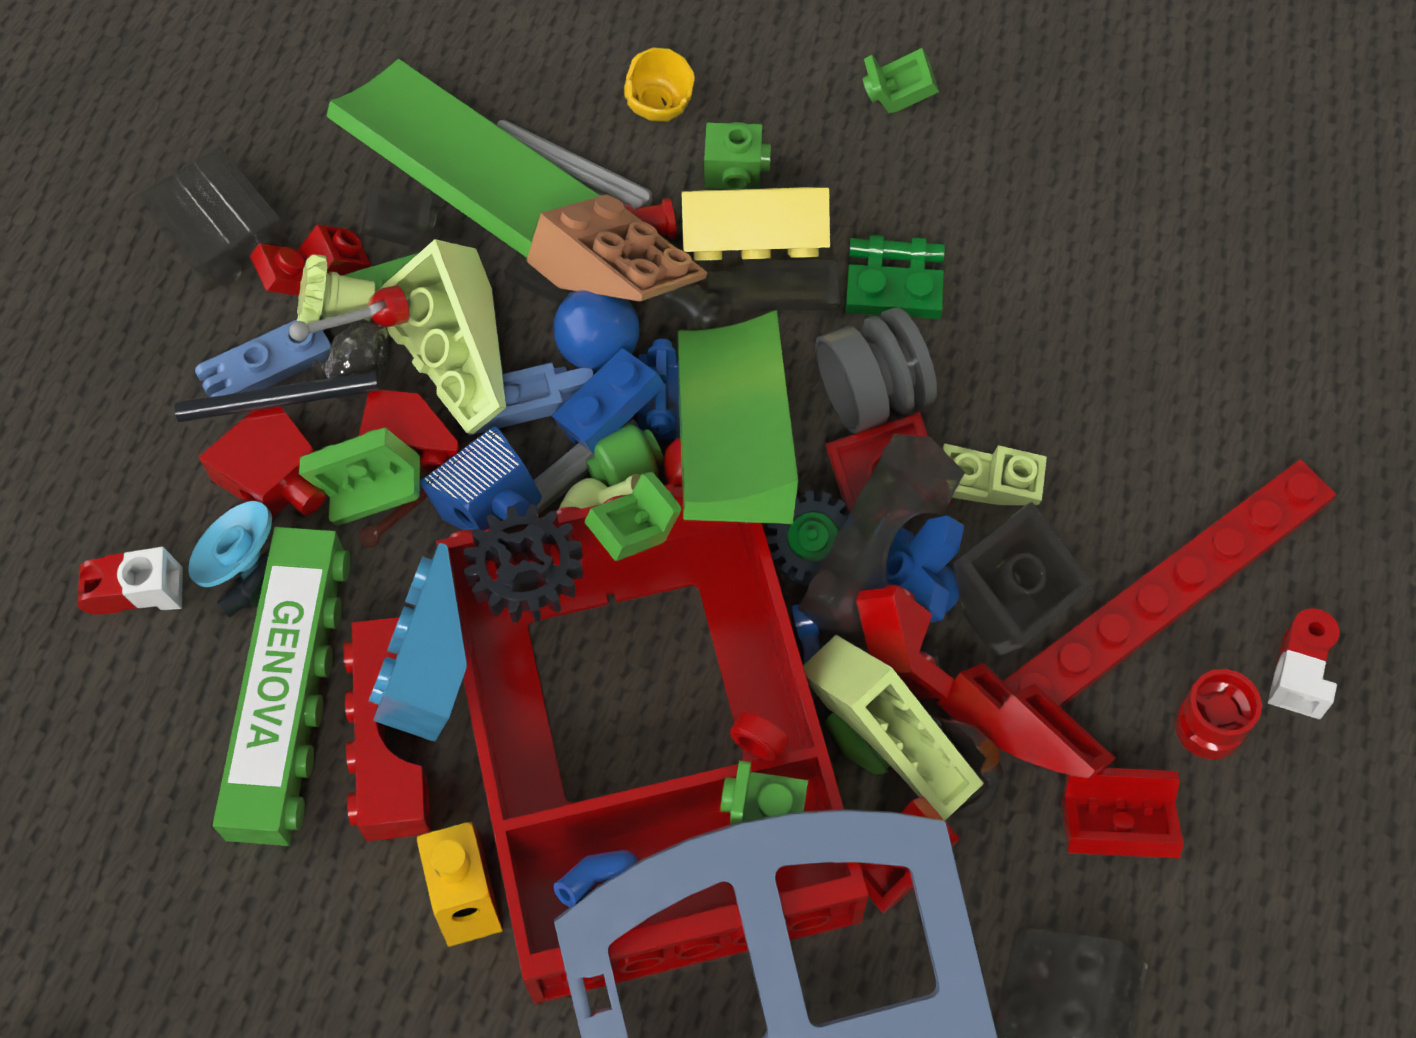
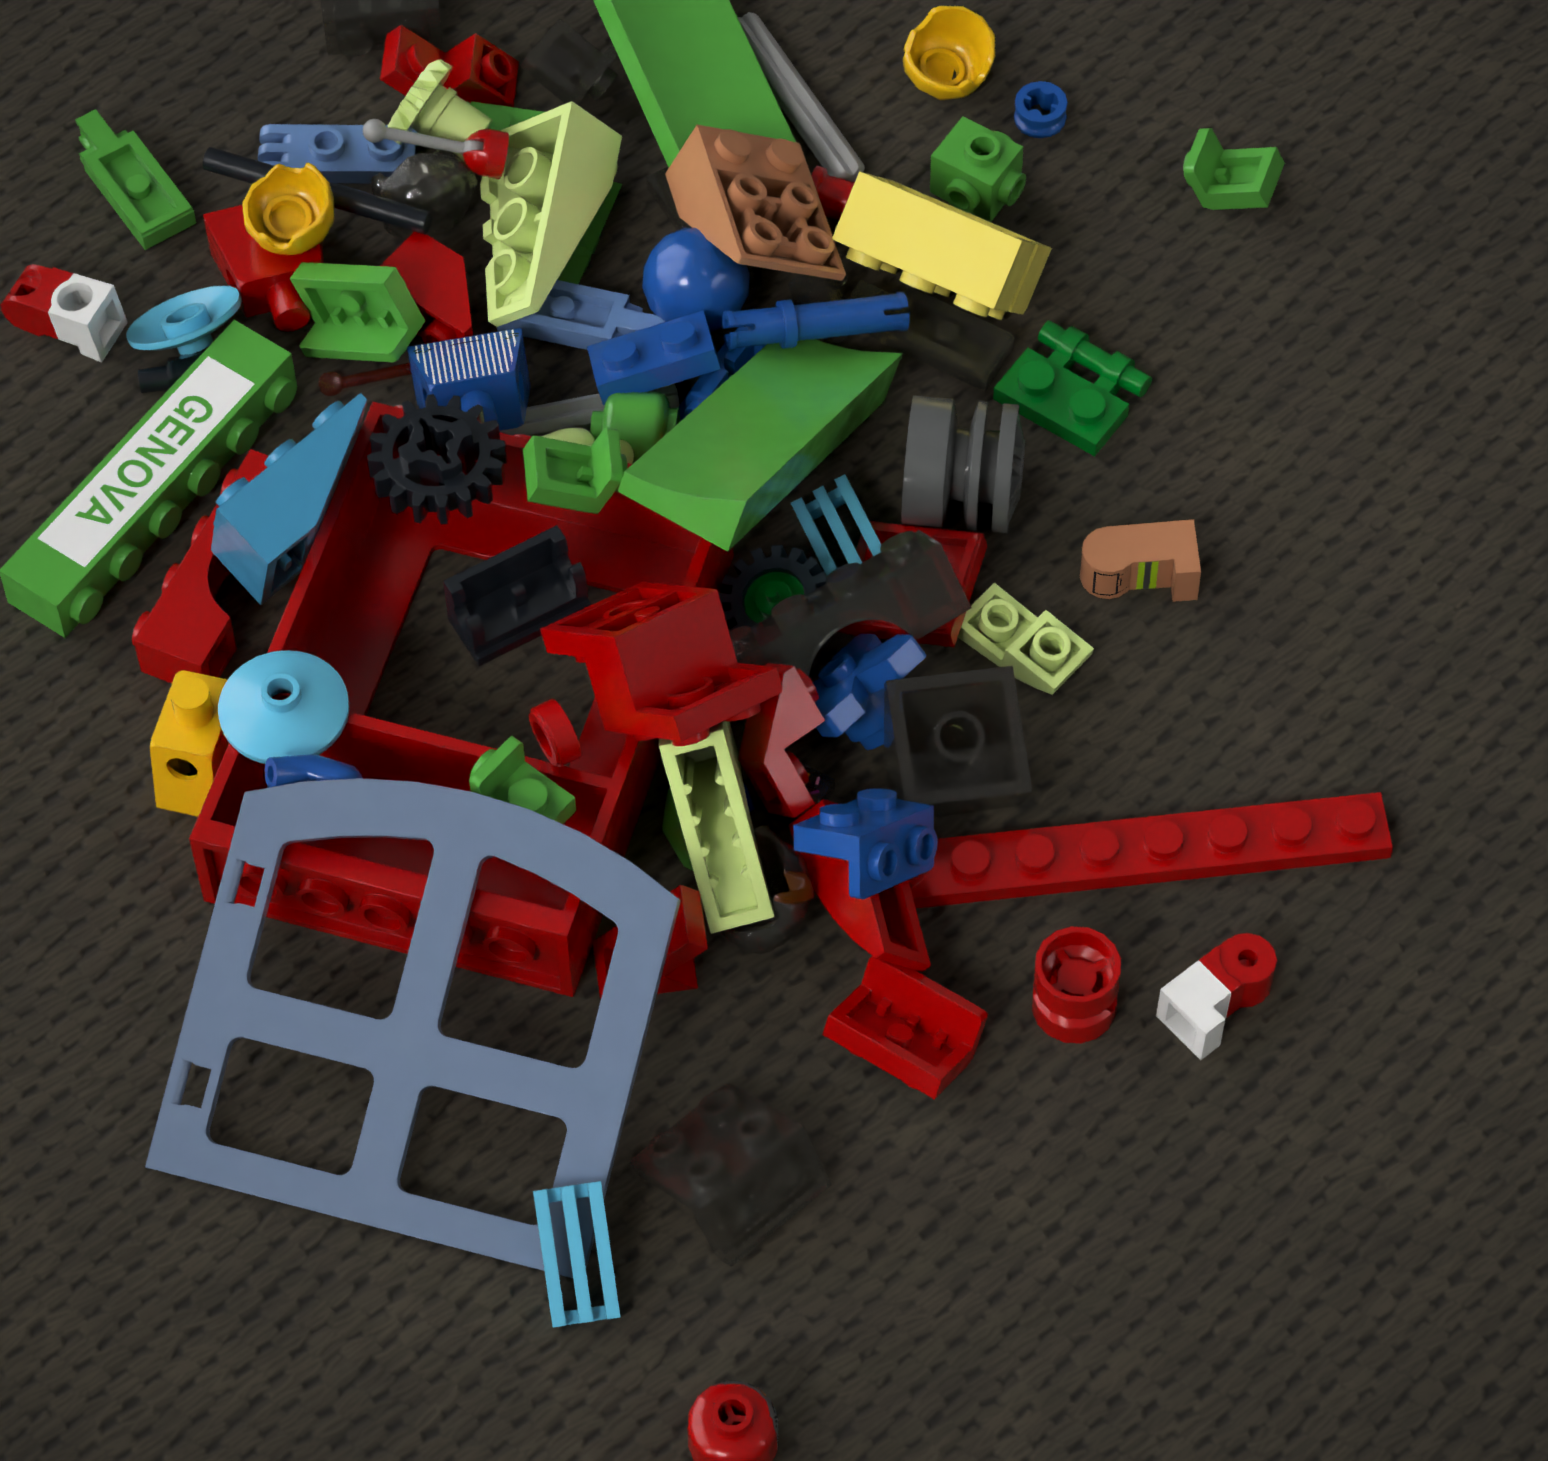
camera: 30 degrees right, 5 degrees down
(121, 457) = (133, 182): none -> bright green hinge
(270, 421) = (289, 209): none -> yellow hair
(533, 853) = (294, 726): none -> medium azure dish
(656, 642) = (515, 595): none -> black hinge
(690, 326) = (817, 320): none -> blue pin
(743, 107) = (1049, 98): none -> blue bush
(808, 637) = (662, 662): none -> red bracket
(854, 484) = (825, 505): none -> medium azure tile
(1022, 685) = (877, 834): none -> blue bracket
(1033, 372) = (1142, 558): none -> nougat leg

